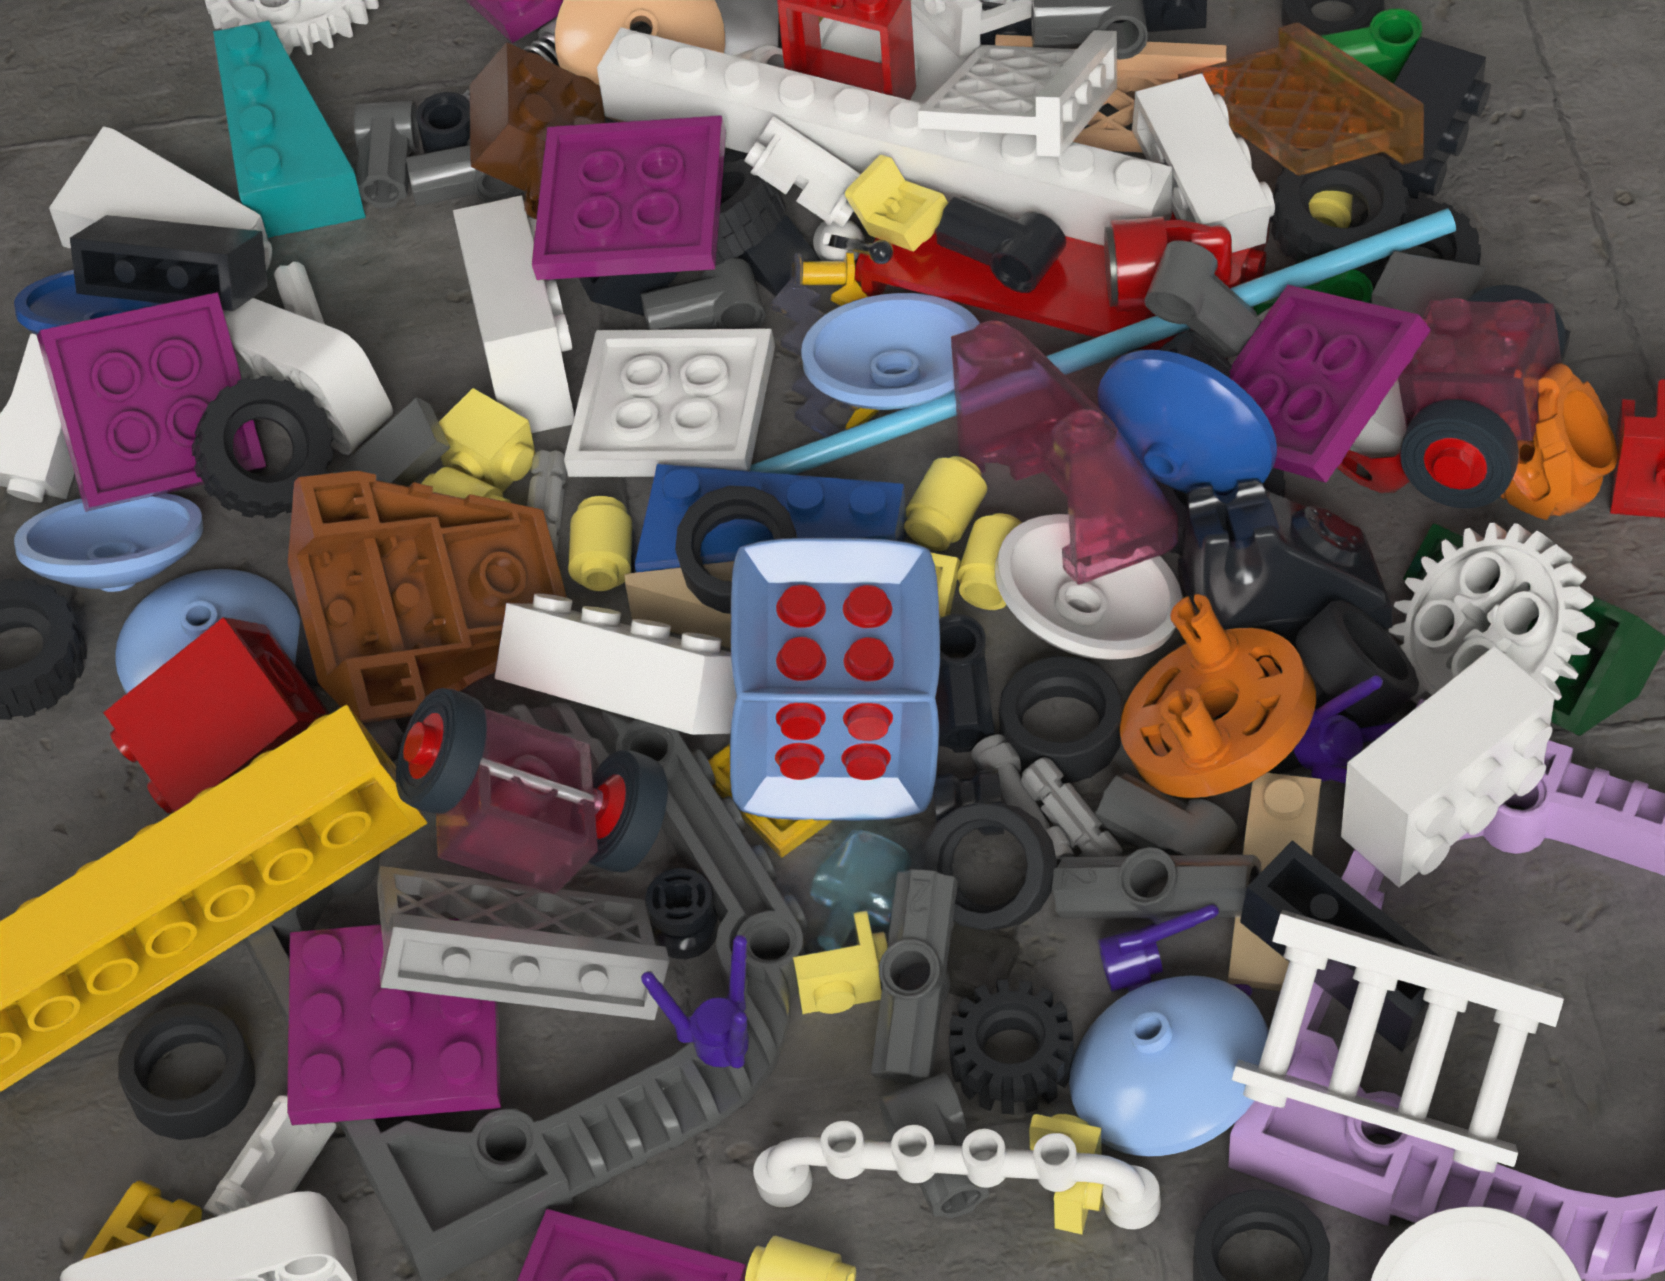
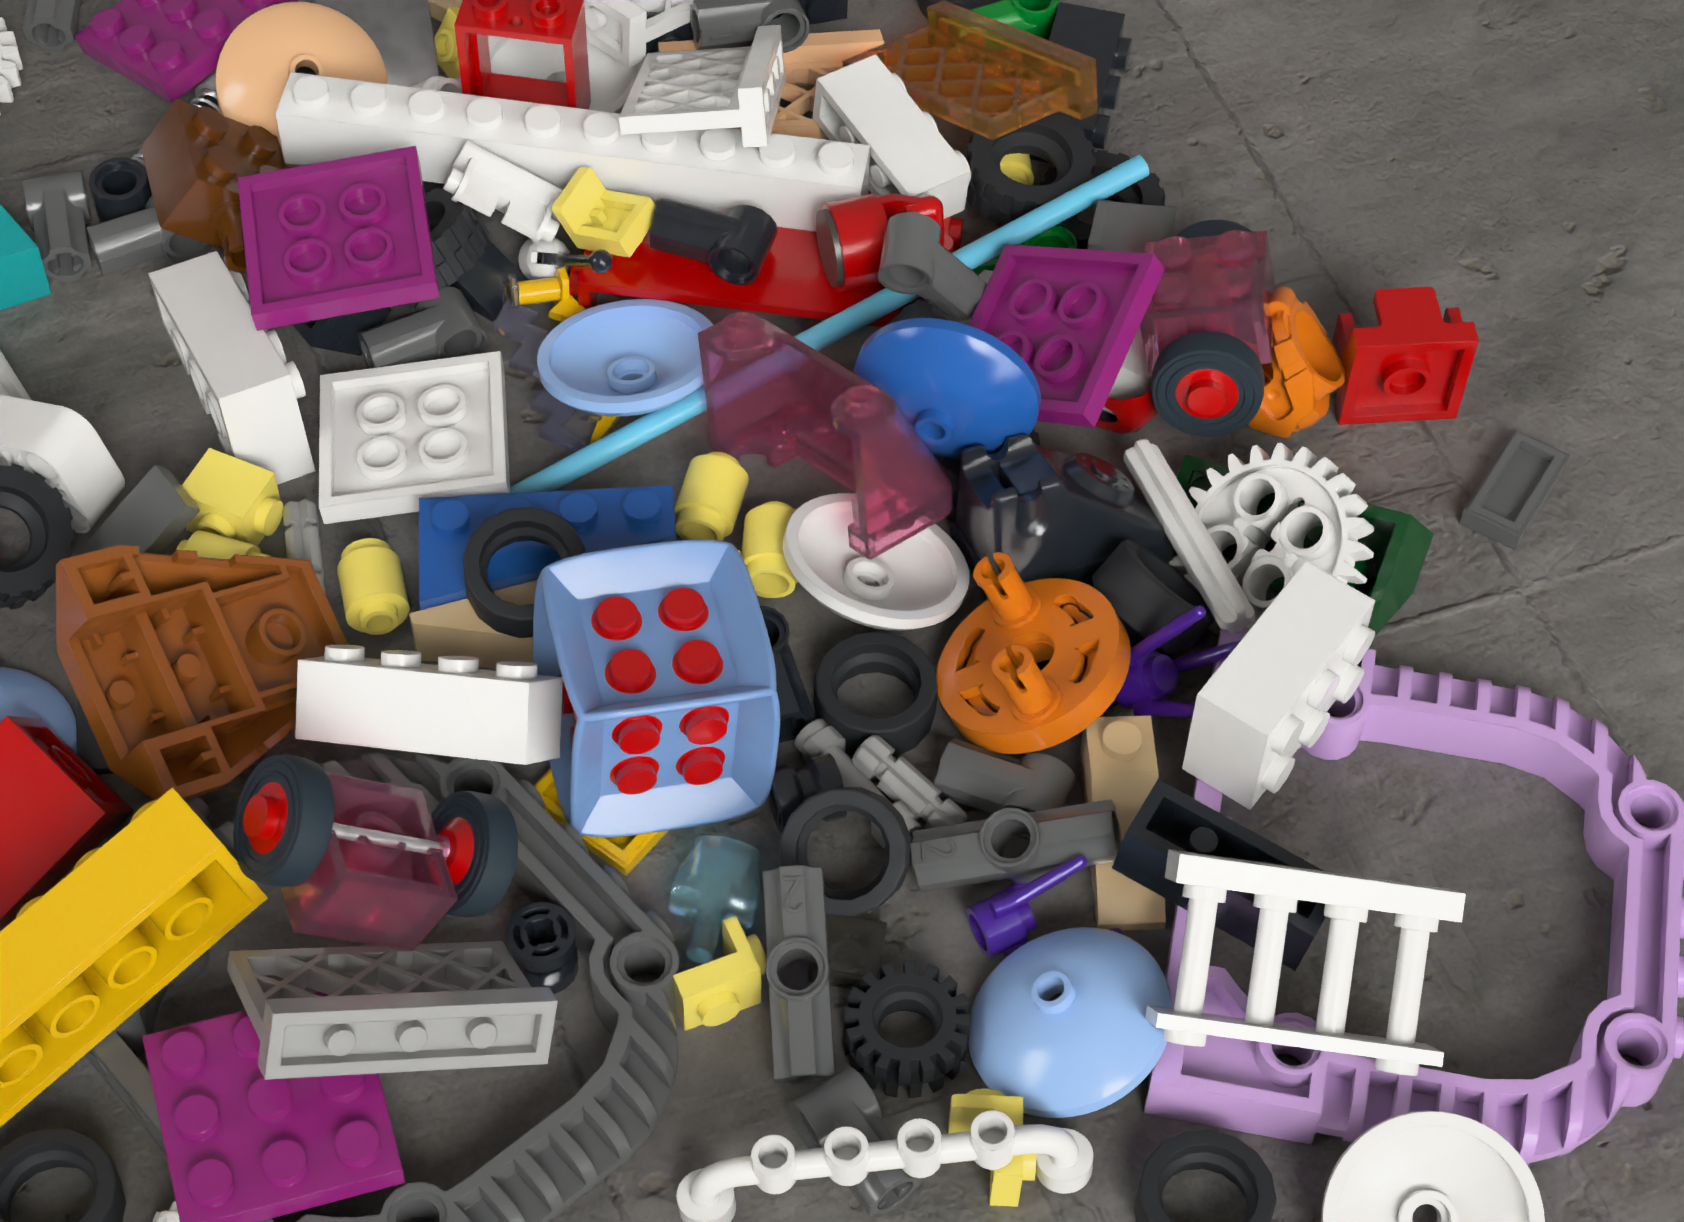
camera: 20 degrees left, 0 degrees up
(718, 1024) = (619, 1058): dark purple plant -> none
(1406, 601) = (1189, 537): none -> white axle

